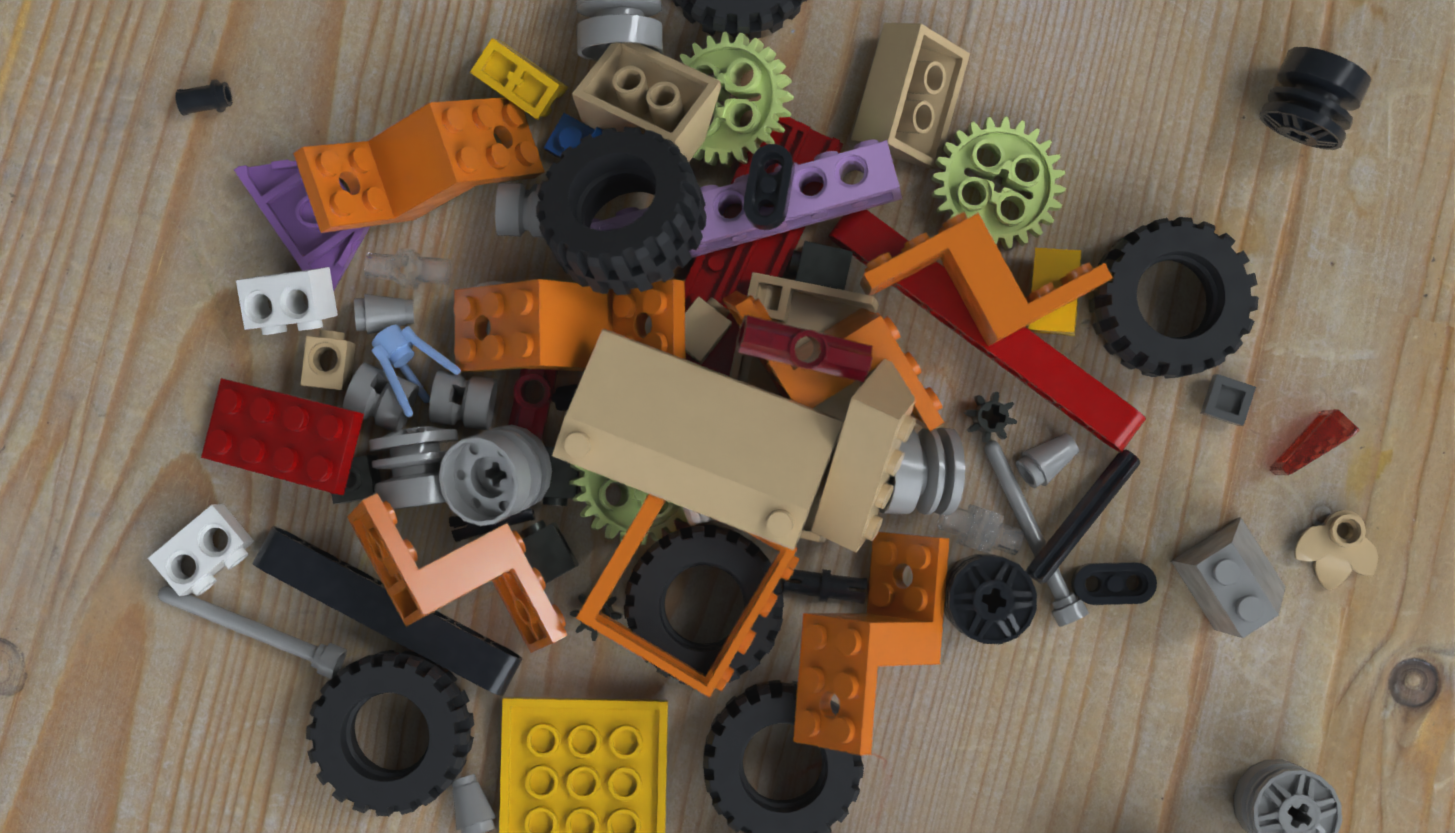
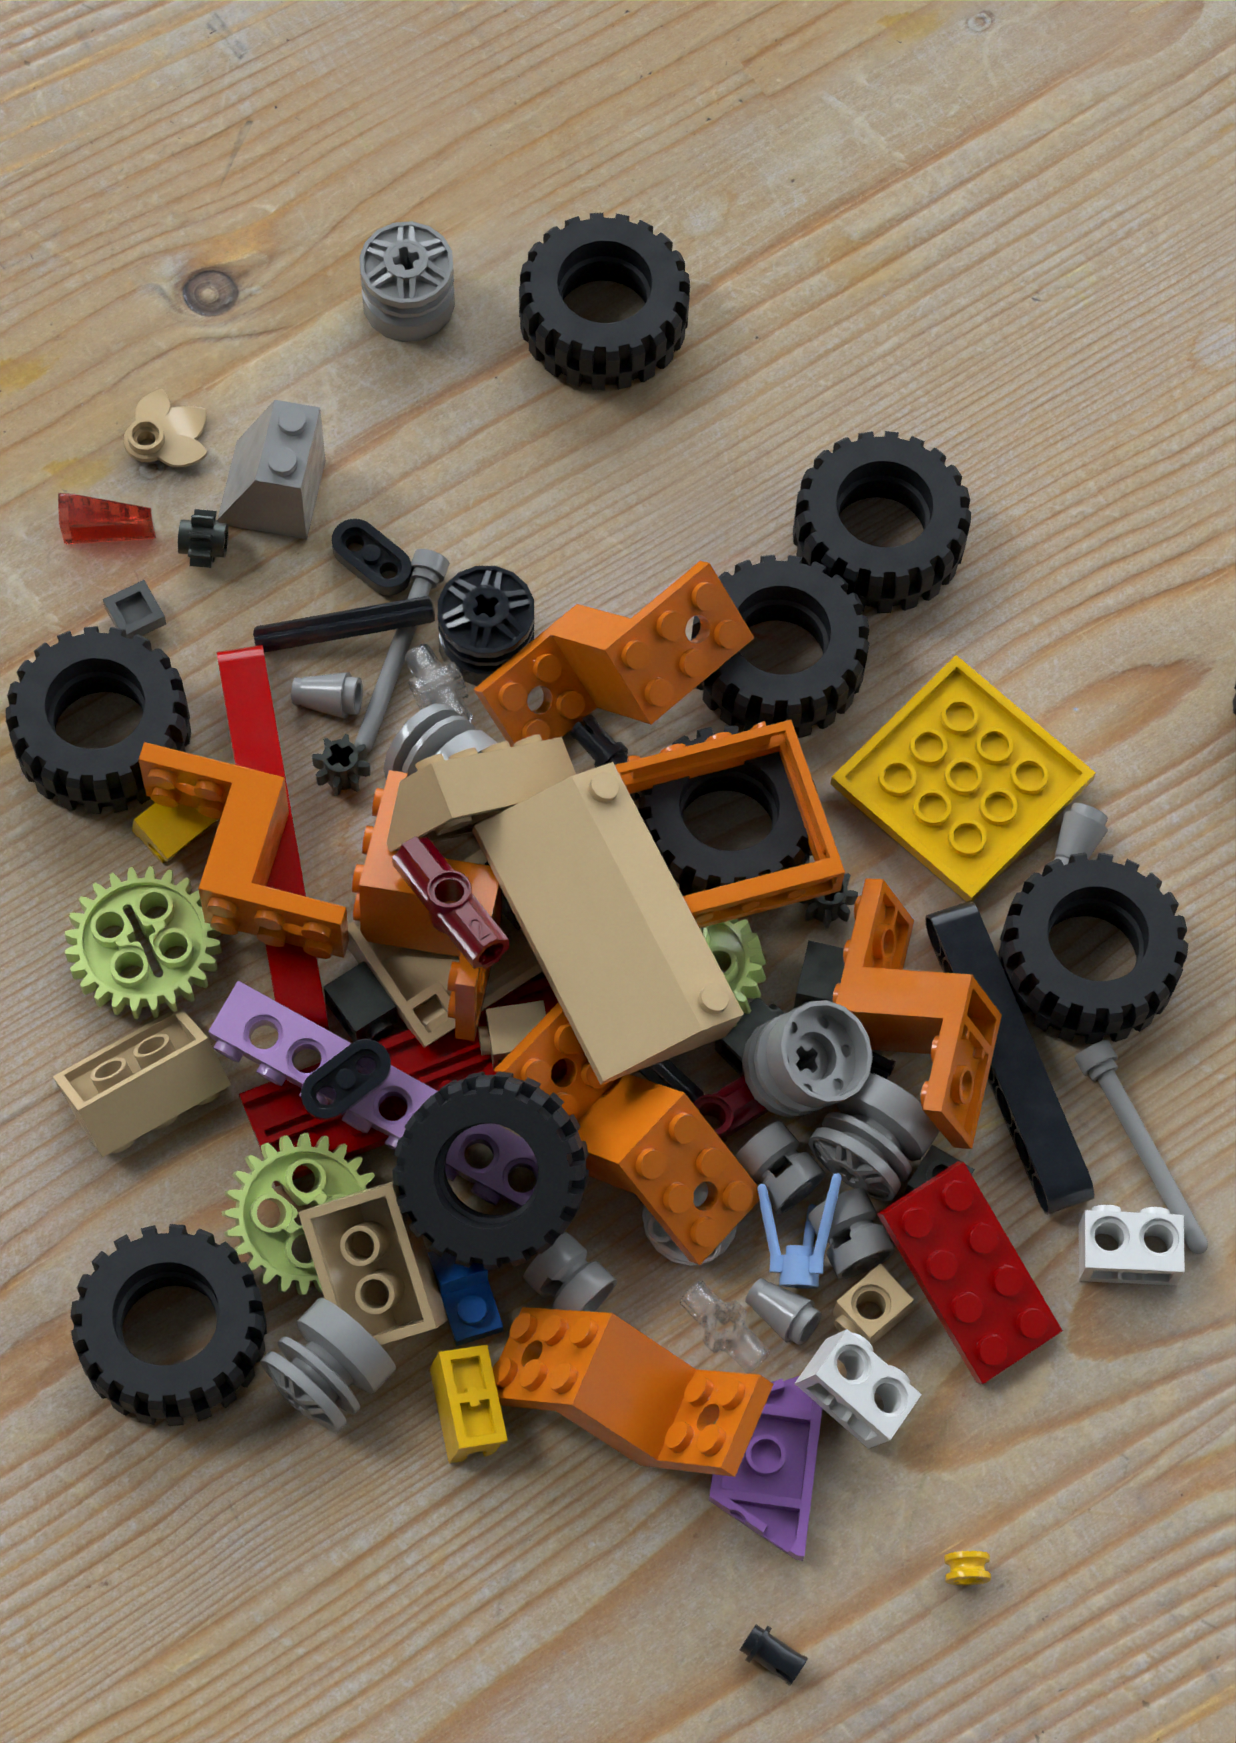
camera: 140 degrees left, 20 degrees down
(132, 253) = (967, 1568): none -> yellow bush
(1235, 491) = (203, 538): none -> pearl dark grey gear

